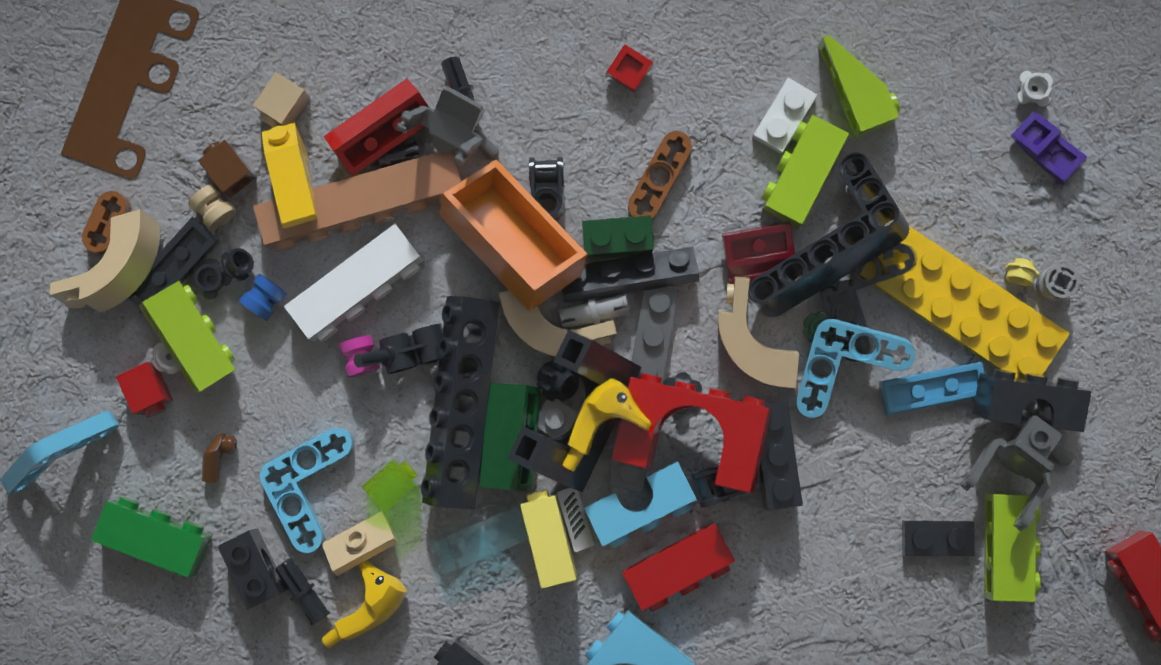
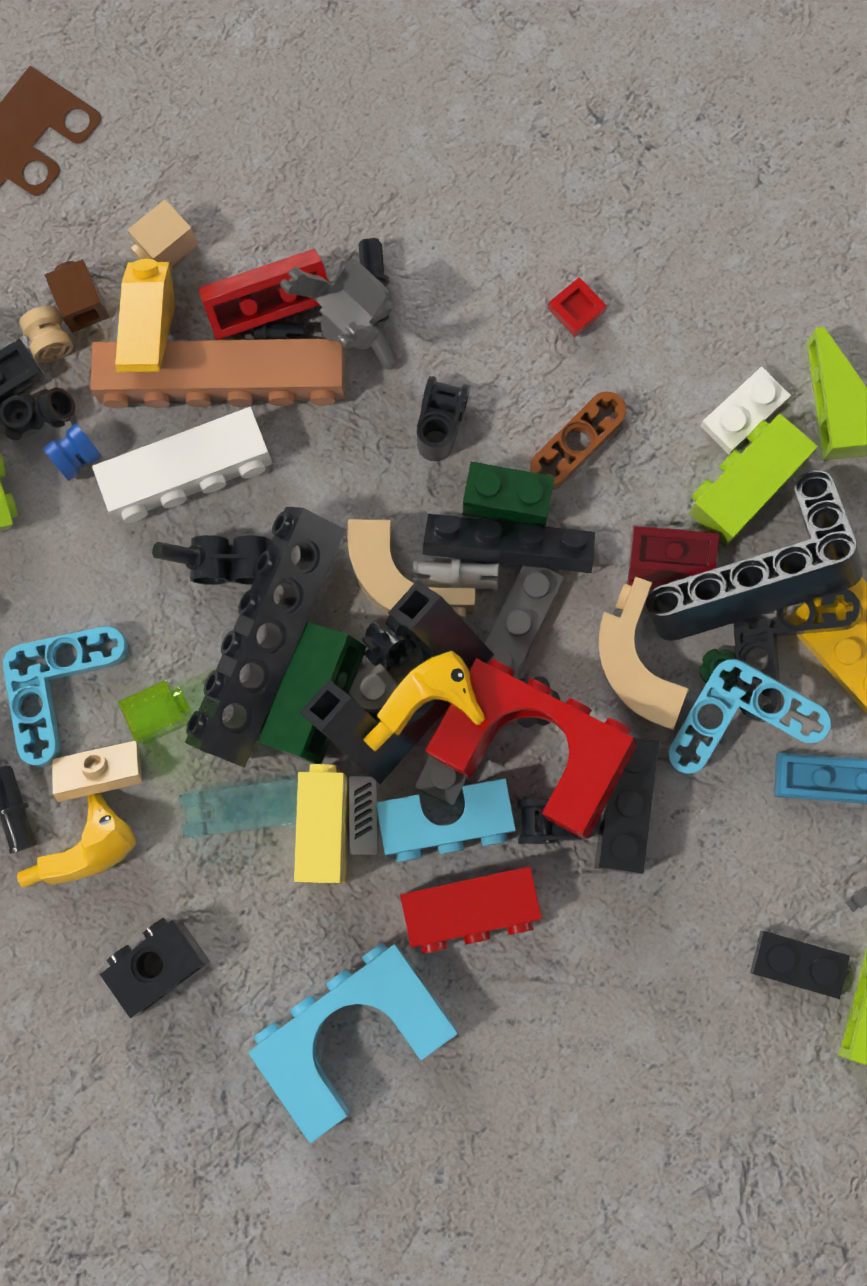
camera: 15 degrees right, 5 degrees down
(356, 346) = (163, 534): dark pink wheel -> none
(512, 235) = (384, 455): orange piece -> none

